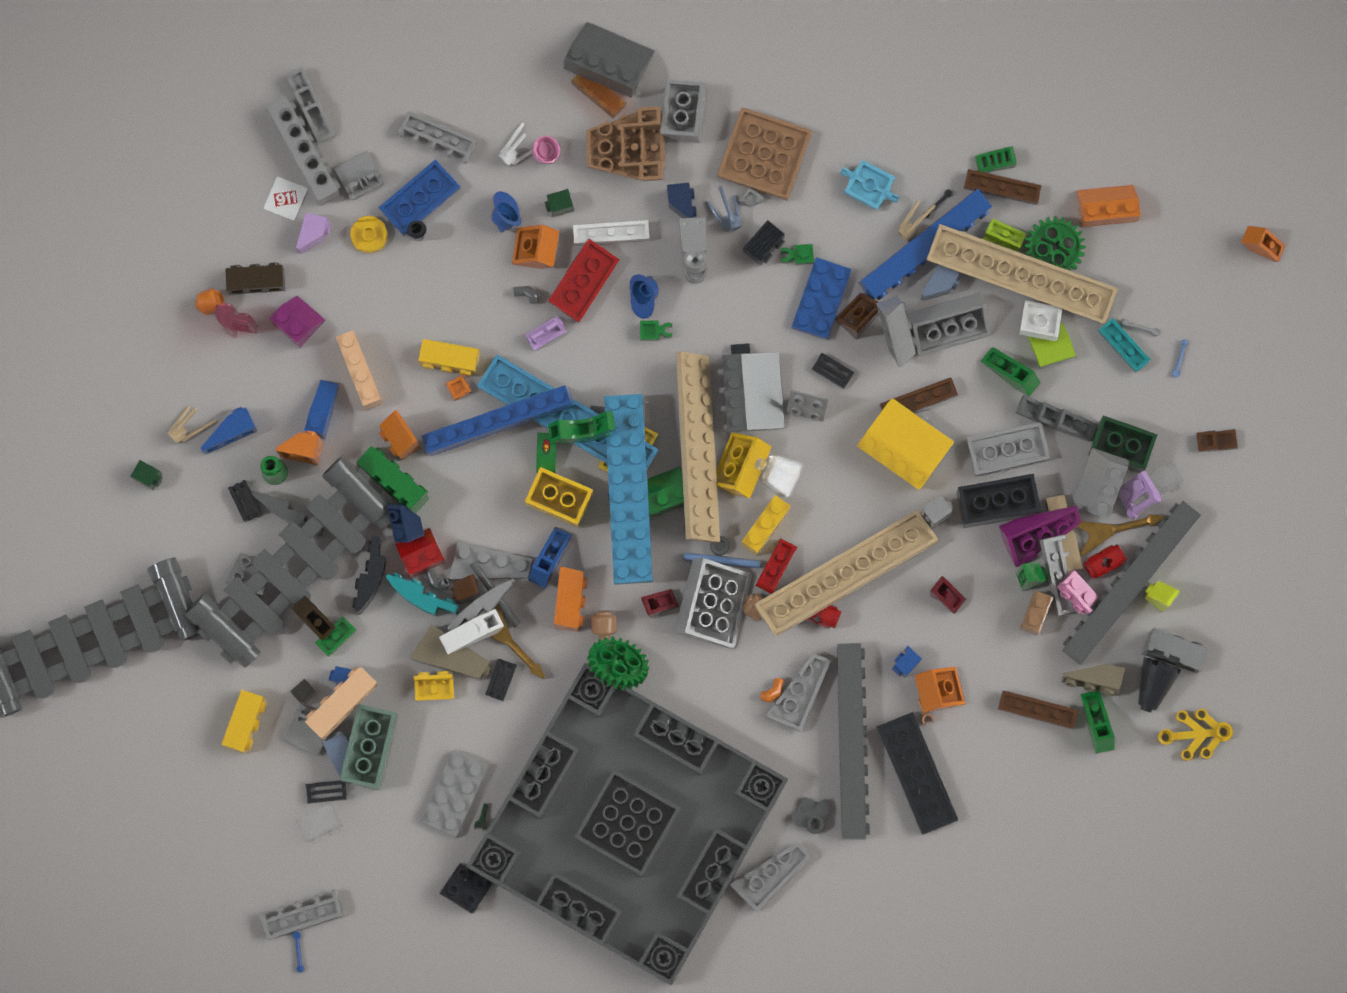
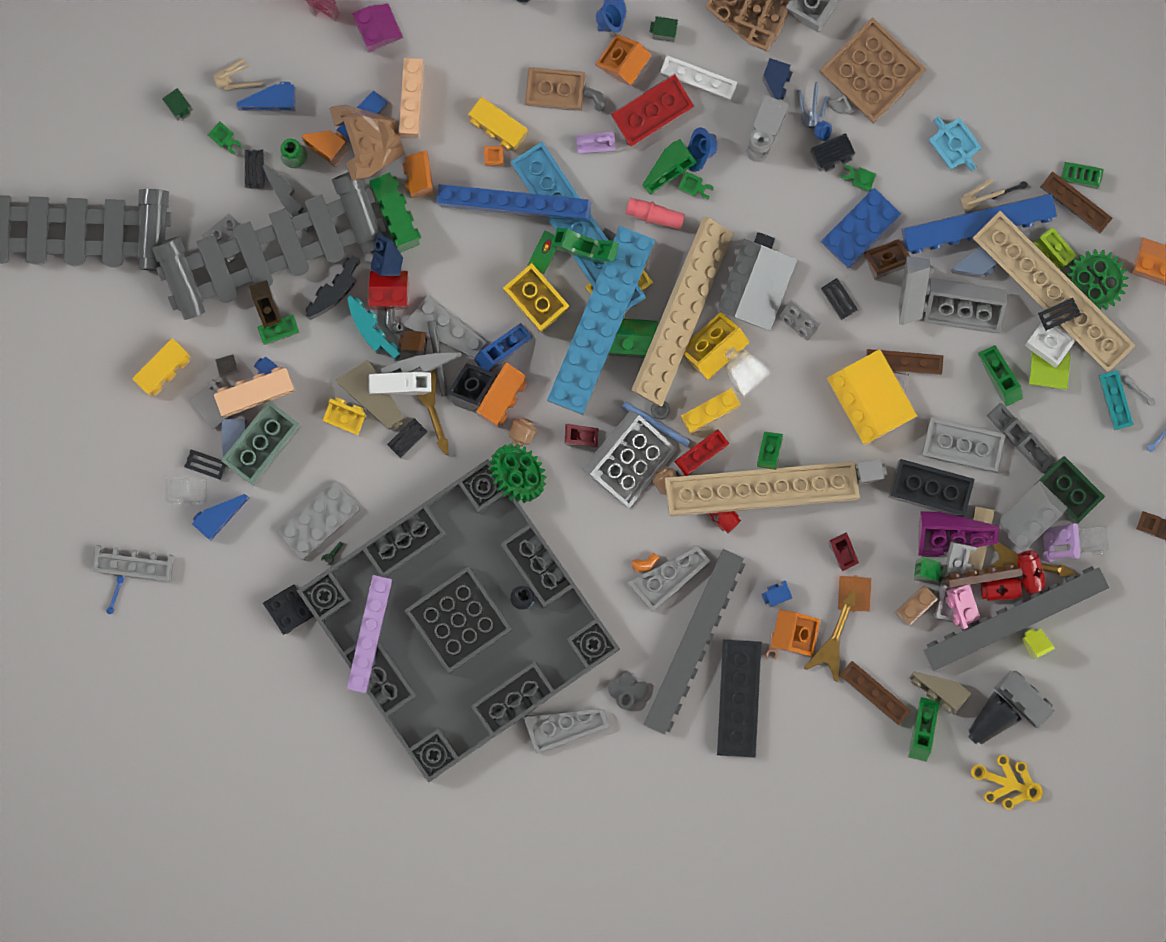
camera: 25 degrees right, 5 degrees up
(201, 484) = (222, 135): none -> green plate
(341, 421) = (372, 139): none -> medium nougat wedge
(358, 836) = (215, 518): none -> blue slope
(485, 302) = (555, 88): none -> medium nougat tile
(538, 605) = (471, 387): none -> black slope
(552, 874) = (369, 634): none -> lavender plate
(623, 320) = (671, 163): none -> green slope
(630, 371) = (654, 213): none -> coral piece
(676, 774) = (522, 597): none -> black piece
(746, 227) = (823, 130): none -> blue tile
(837, 535) = (770, 450): none -> green plate
(975, 629) = (862, 592): none -> clear orange piece
(978, 690) = (830, 650): none -> pearl gold piece
(1042, 296) = (1063, 320): none -> black tile
(1088, 552) = (975, 576): none -> reddish brown plate
(1130, 539) = (1034, 579): none -> red piece

